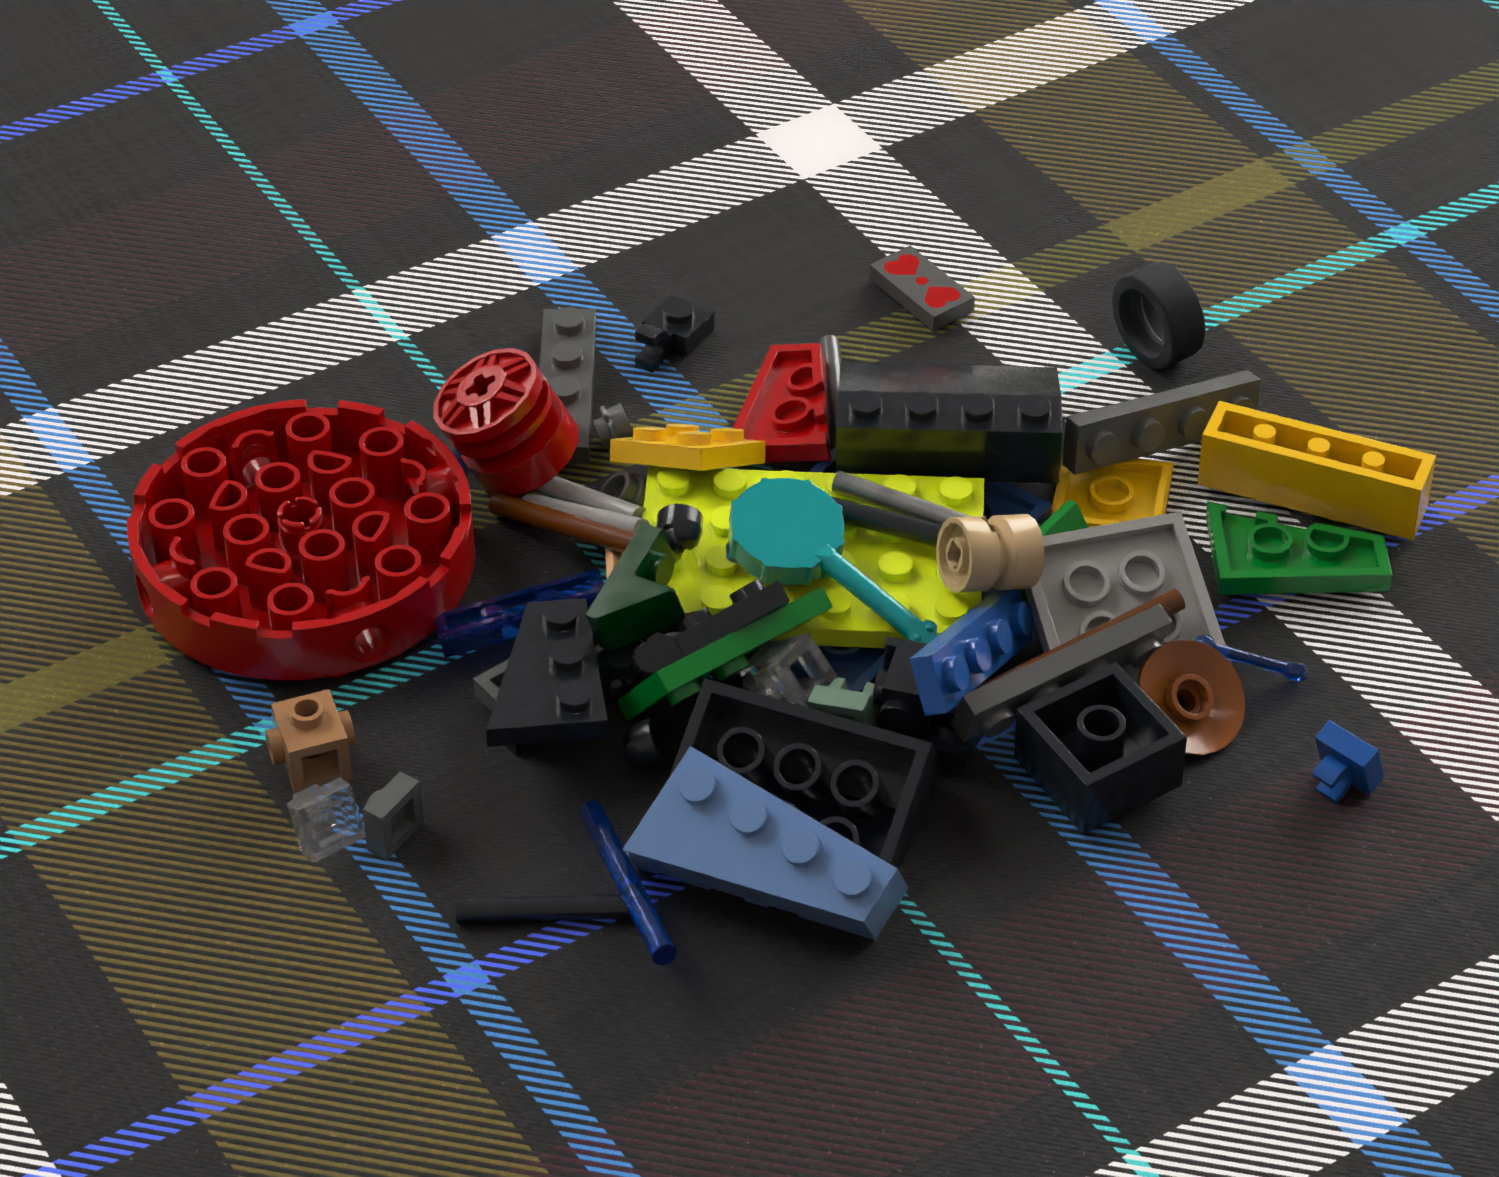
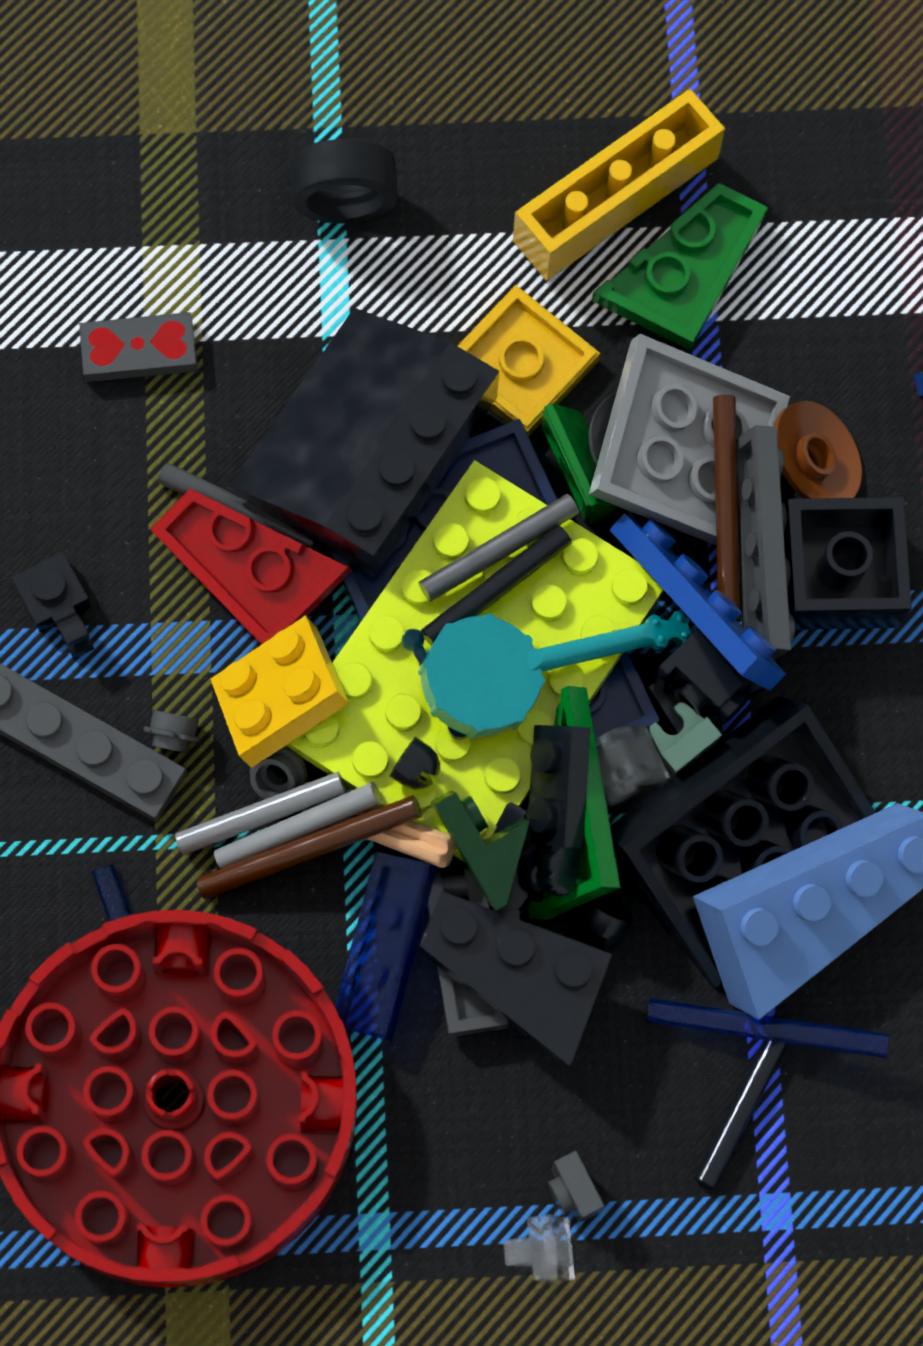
camera: 65 degrees left, 30 degrees up
(311, 729) = (470, 1203): medium nougat brick -> none
(506, 422) = (174, 818): red wheel -> none
(990, 553) = (616, 523): tan wheel -> none
(1151, 422) = (483, 244): dark grey plate -> none
(1290, 670) = (812, 352): clear blue hinge -> none

